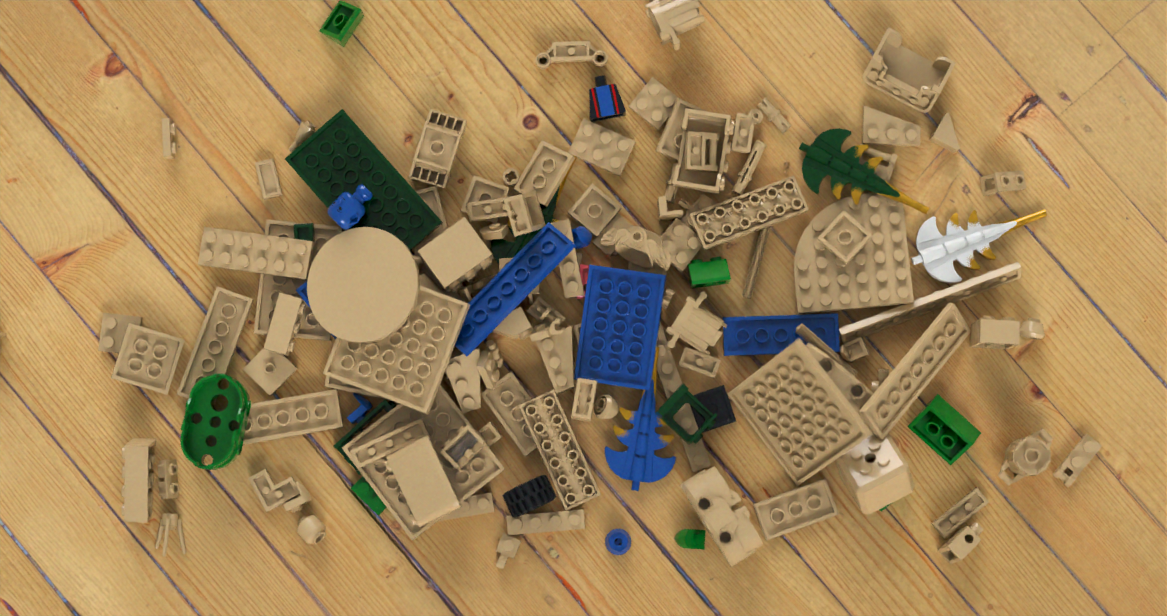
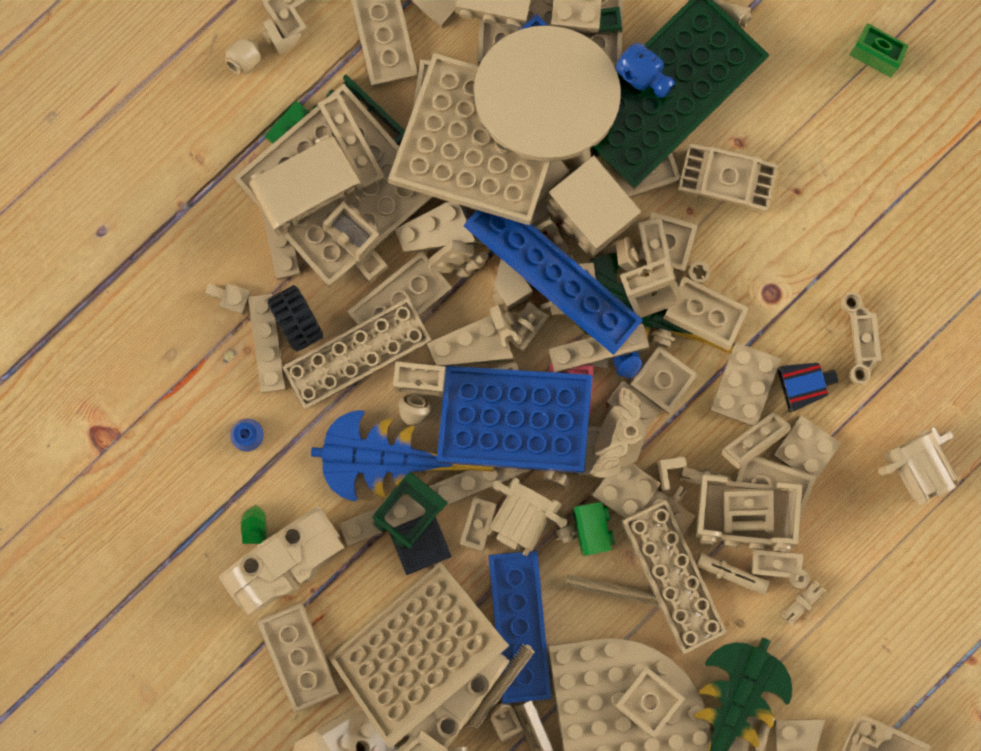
camera: 80 degrees right, 0 degrees up
(359, 413) = (389, 105): blue plate -> none
(561, 208) = (662, 338): none -> tan plate
(646, 142) = (756, 440): none -> tan tile
(711, 293) = (566, 534): none -> tan plate

